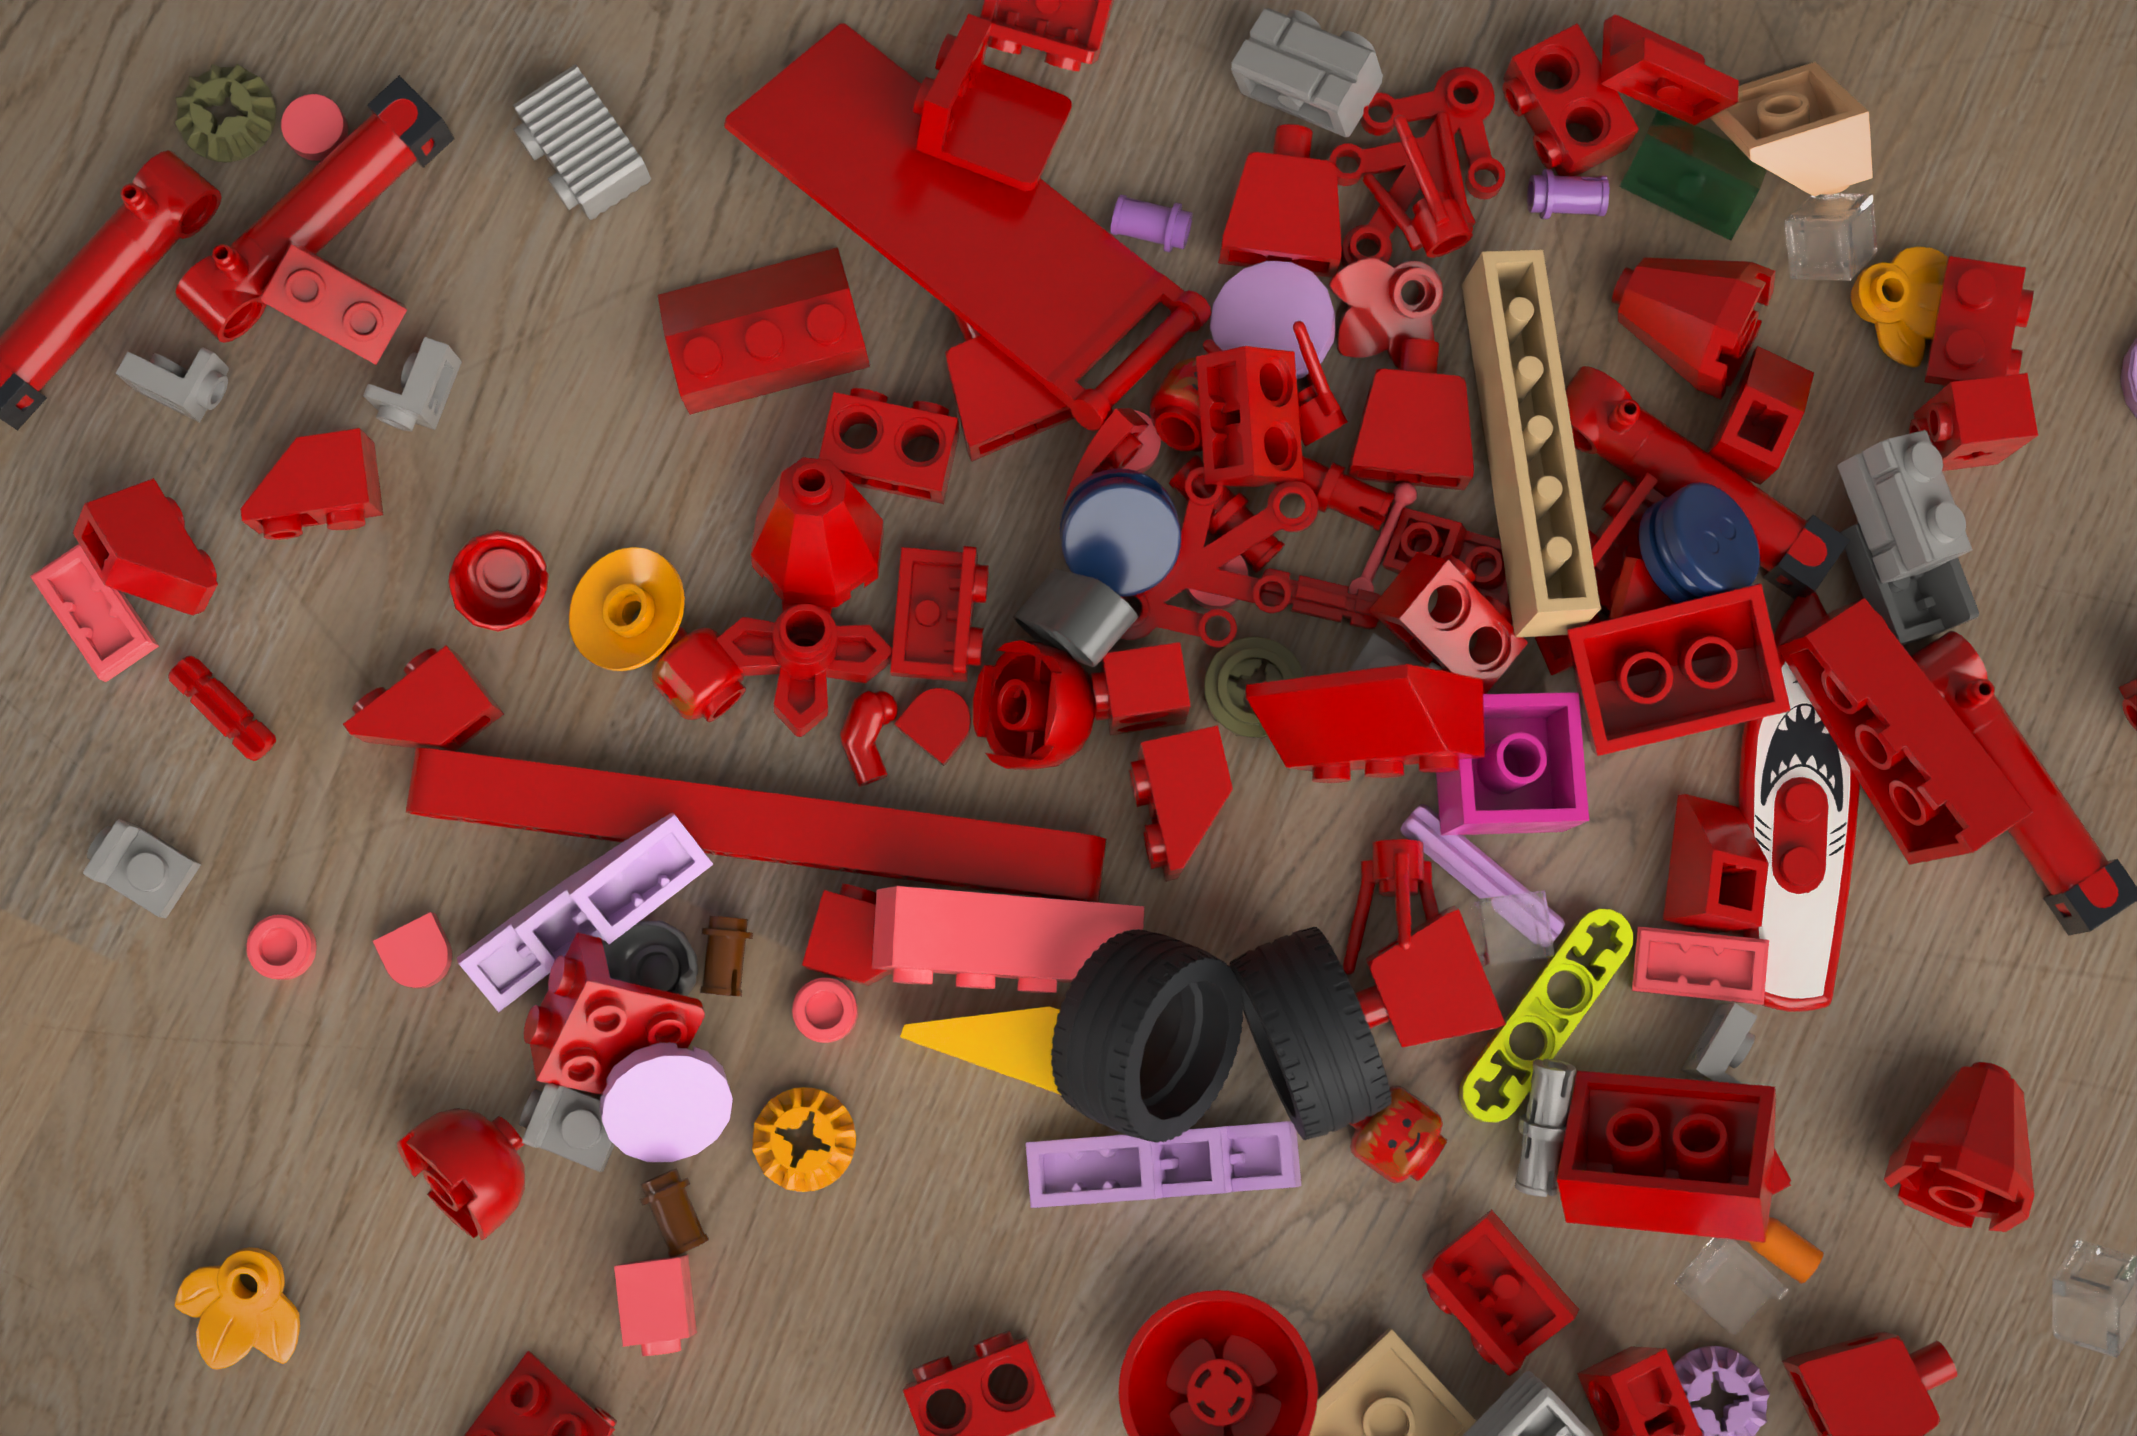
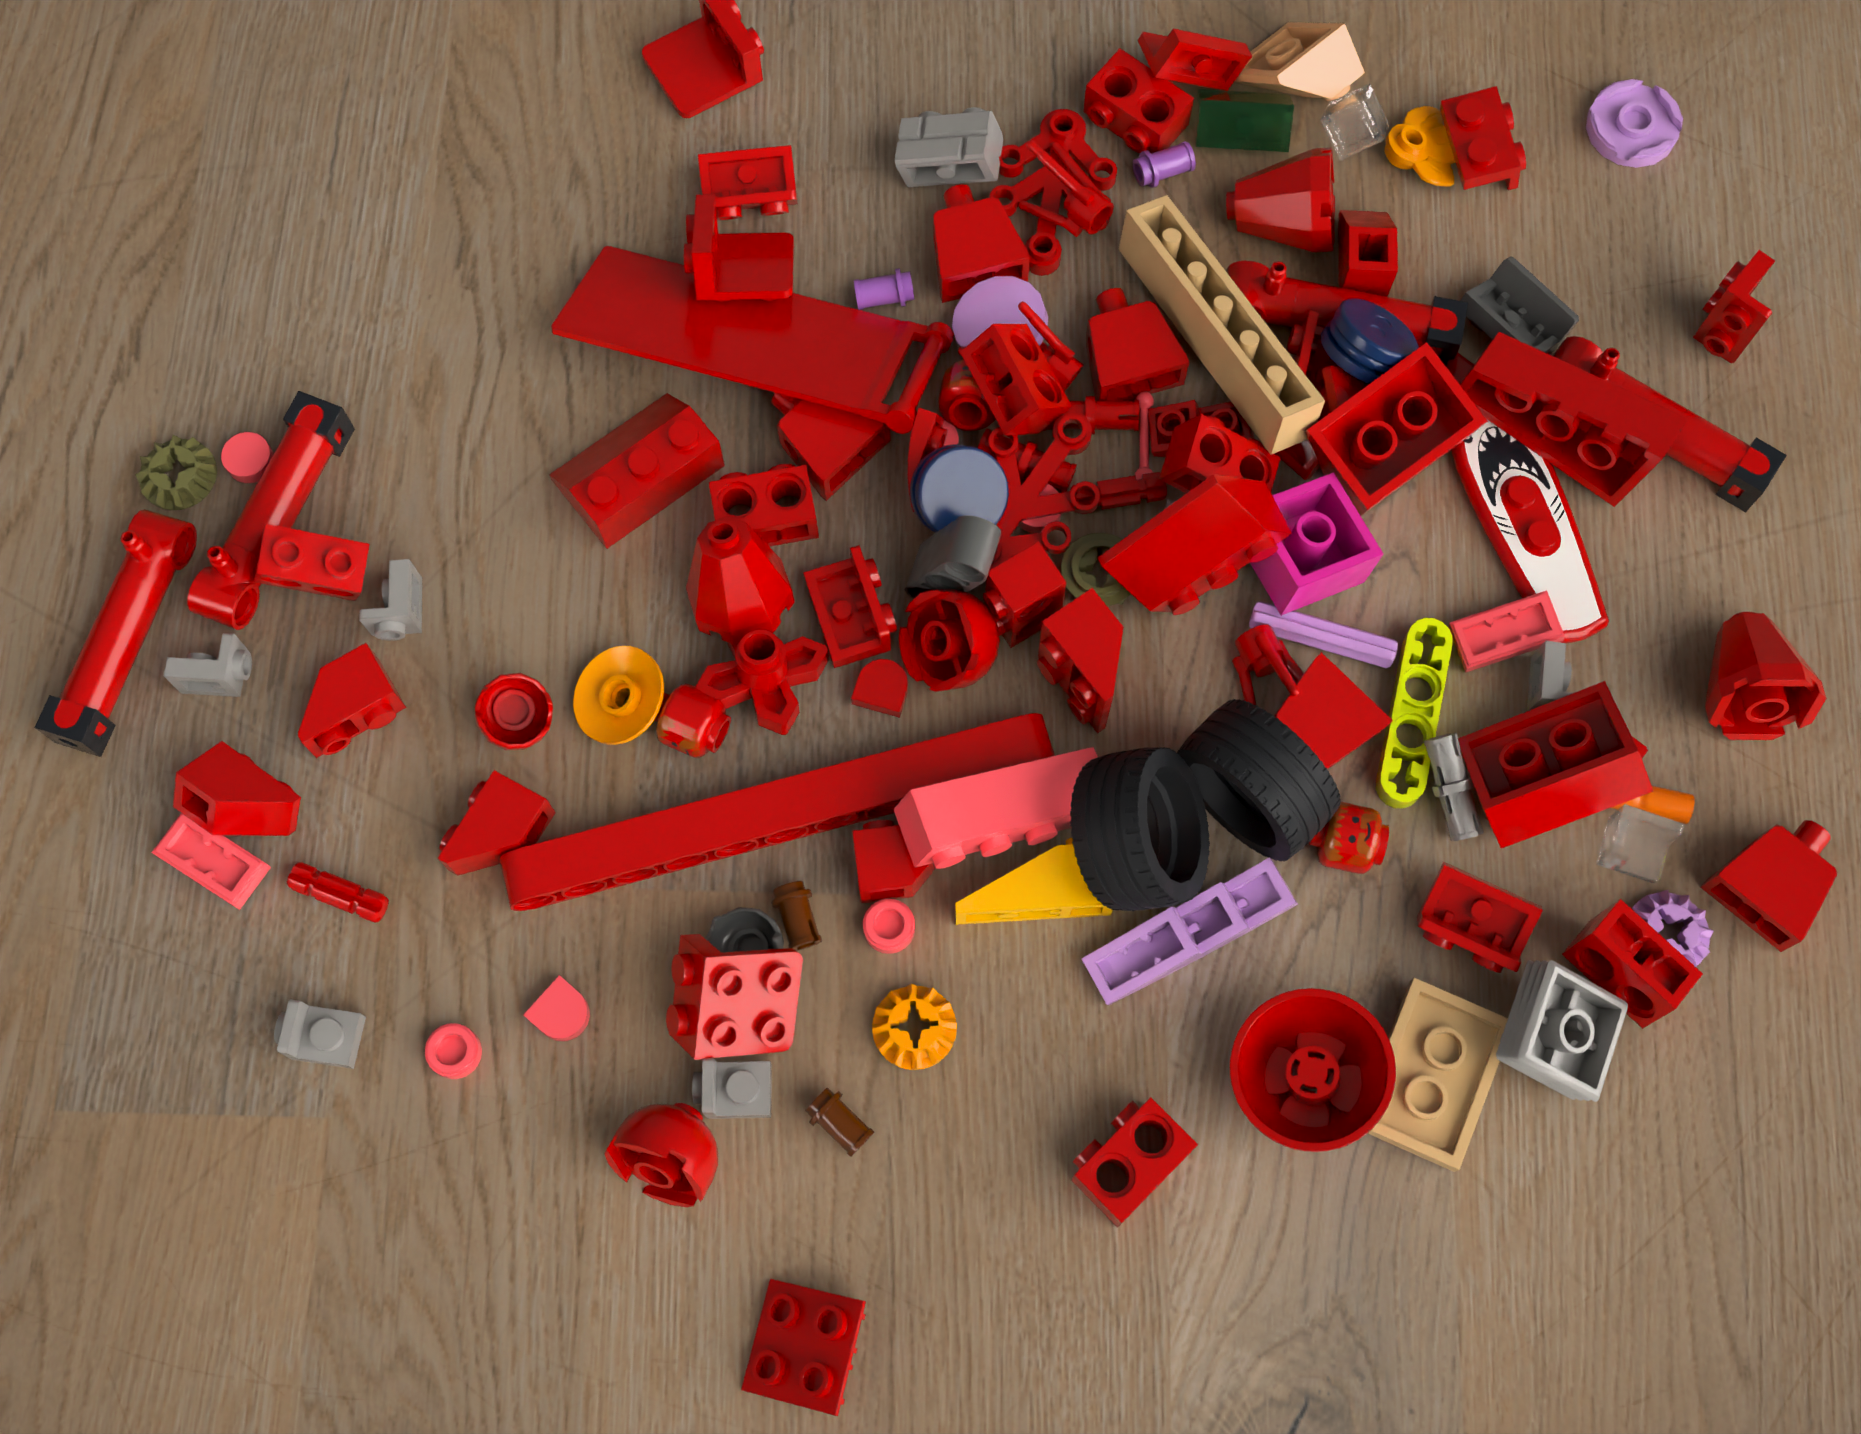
camera: 20 degrees left, 10 degrees down
(238, 1318) = (530, 1349): light orange plate -> none
(581, 142) = (451, 391): light grey brick -> none
(595, 901) = (685, 907): lavender slope -> none
(655, 1304) = (855, 1195): coral brick -> none
(665, 1103) = (799, 1037): tile -> none
(861, 730) = (828, 715): red arm -> none
(1376, 311) = (1068, 286): red plate -> none
(1512, 929) = (1366, 655): clear panel -> none
(1714, 868) = (1485, 561): red slope -> none
(1905, 506) = (1495, 263): light grey brick -> none
(1978, 420) = (1513, 195): red brick -> none

